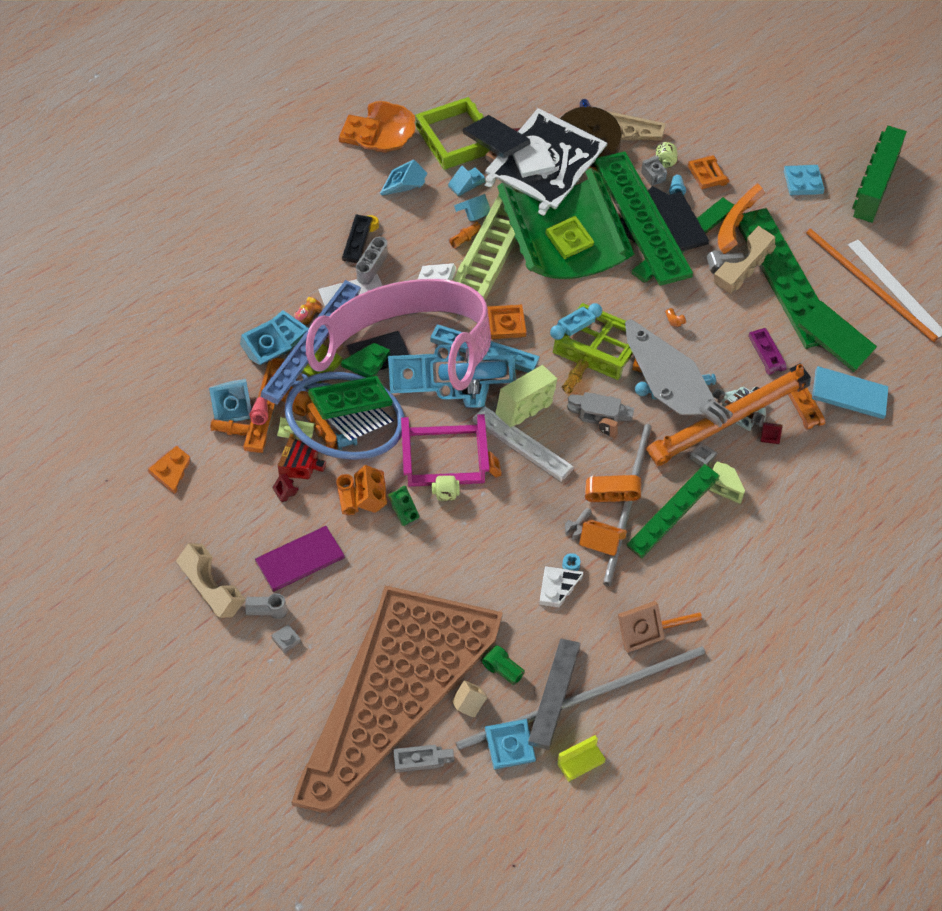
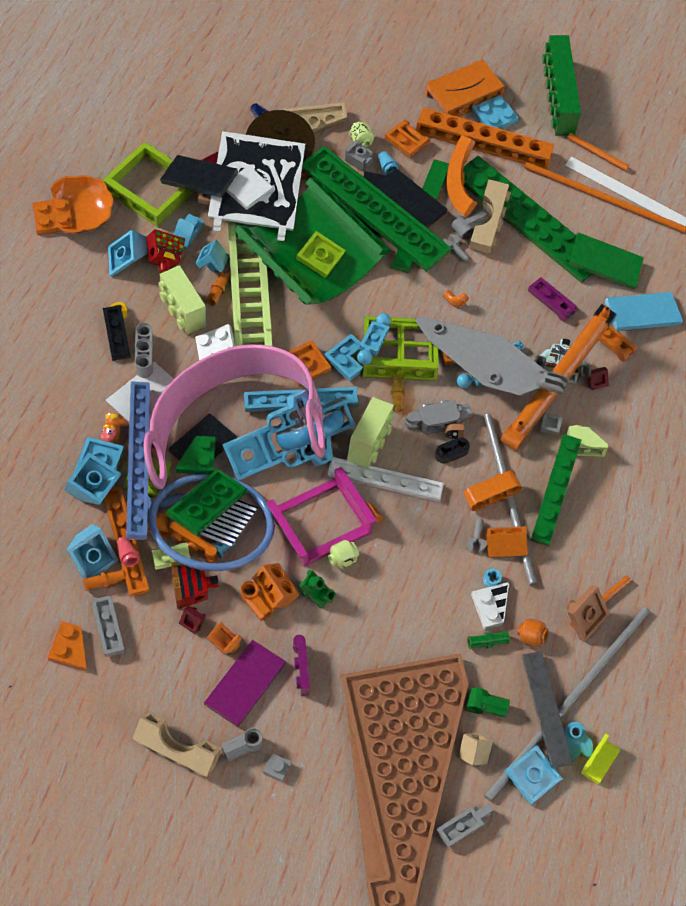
camera: 30 degrees left, 5 degrees up
(211, 465) = (108, 626): none -> light grey plate
(301, 514) = (224, 639): none -> orange bracket
(355, 564) = (301, 664): none -> magenta plate
(426, 231) = (182, 300): none -> yellowish green brick
(435, 187) = (164, 249): none -> red torso
(536, 612) = (488, 640): none -> green pin
(540, 330) = (342, 357): none -> medium azure plate
(566, 736) = (580, 743): none -> medium azure plate
(580, 623) = (533, 632): none -> orange head
(597, 442) = (452, 450): none -> black beam
(701, 276) = (455, 247): none -> light grey bar
(782, 195) = (487, 138): none -> orange brick
(784, 148) = (465, 88): none -> orange panel
(882, 239) = (598, 152): none -> orange bar

